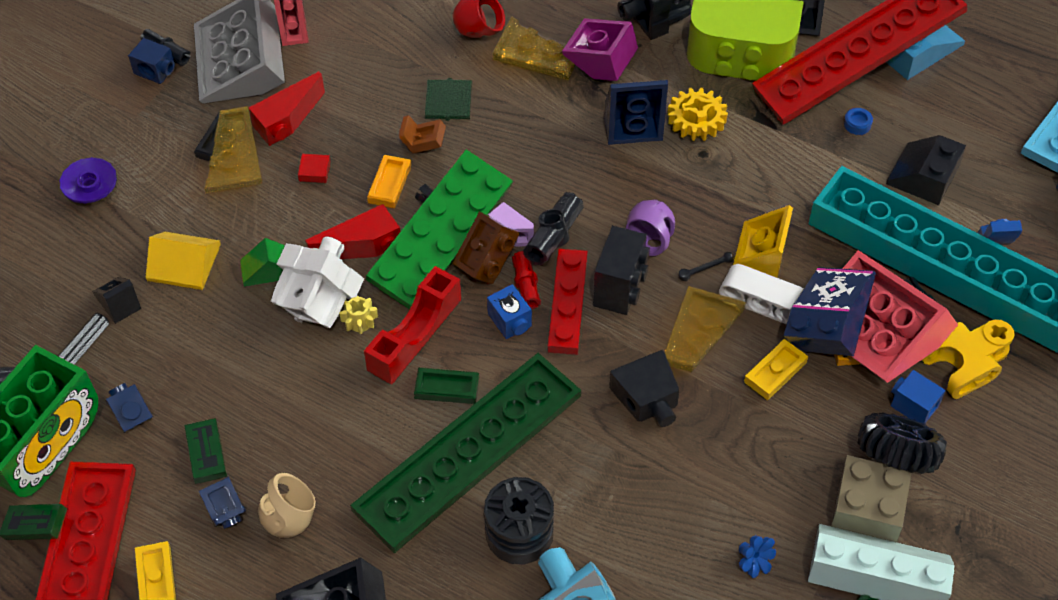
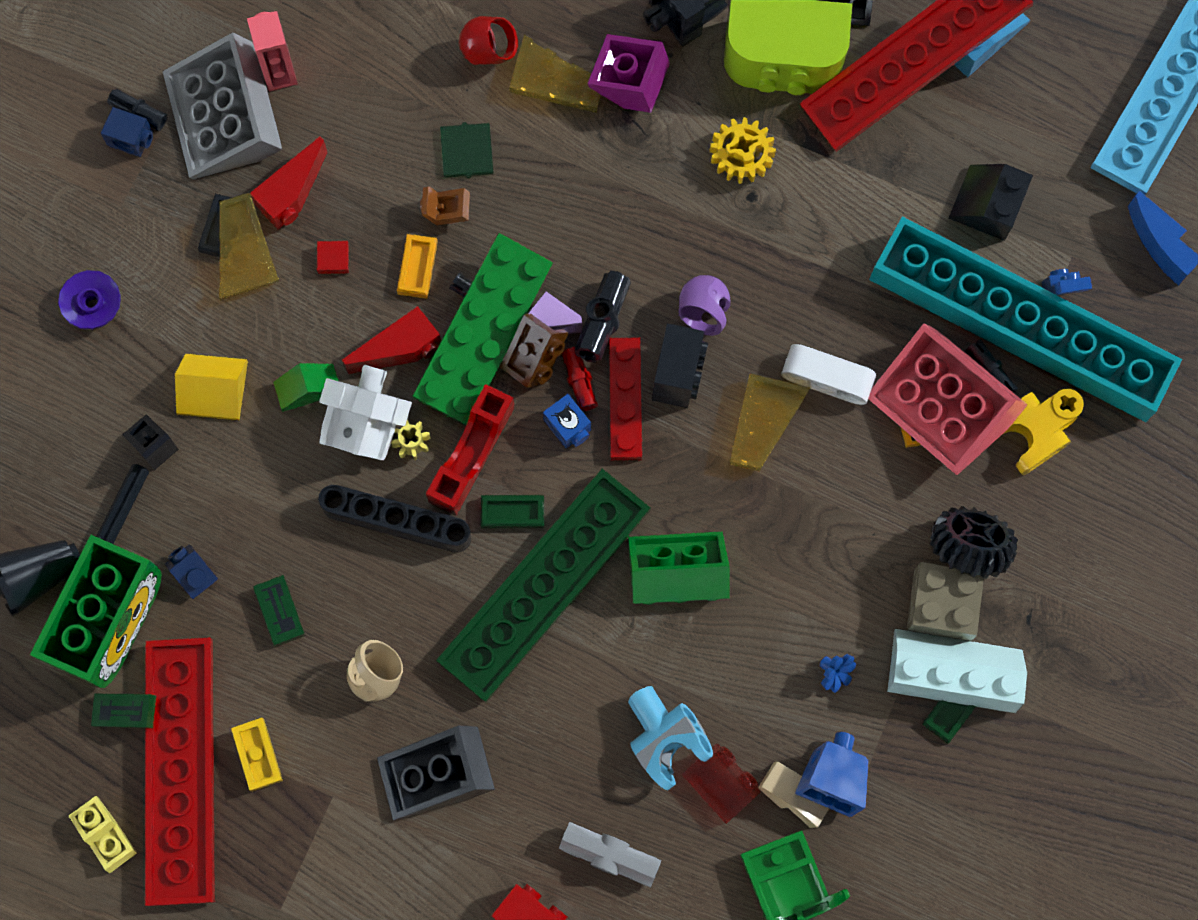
camera: 10 degrees left, 20 degrees up
(222, 503) = (309, 671): dark blue bracket -> none
(343, 388) = (384, 507): none -> black beam
(519, 520) = (605, 681): black wheel -> none
(603, 447) = (679, 567): none -> green slope
(635, 112) = (676, 164): dark blue slope -> none
(647, 388) = (717, 498): black torso -> none
(684, 274) = (743, 353): black hinge -> none
(764, 241) = (823, 310): yellow slope -> none
(776, 369) = (845, 462): yellow plate -> none
(830, 311) = (898, 393): dark blue slope -> none
(858, 121) = (916, 140): blue tile -> none
(916, 397) = (986, 482): blue brick -> none

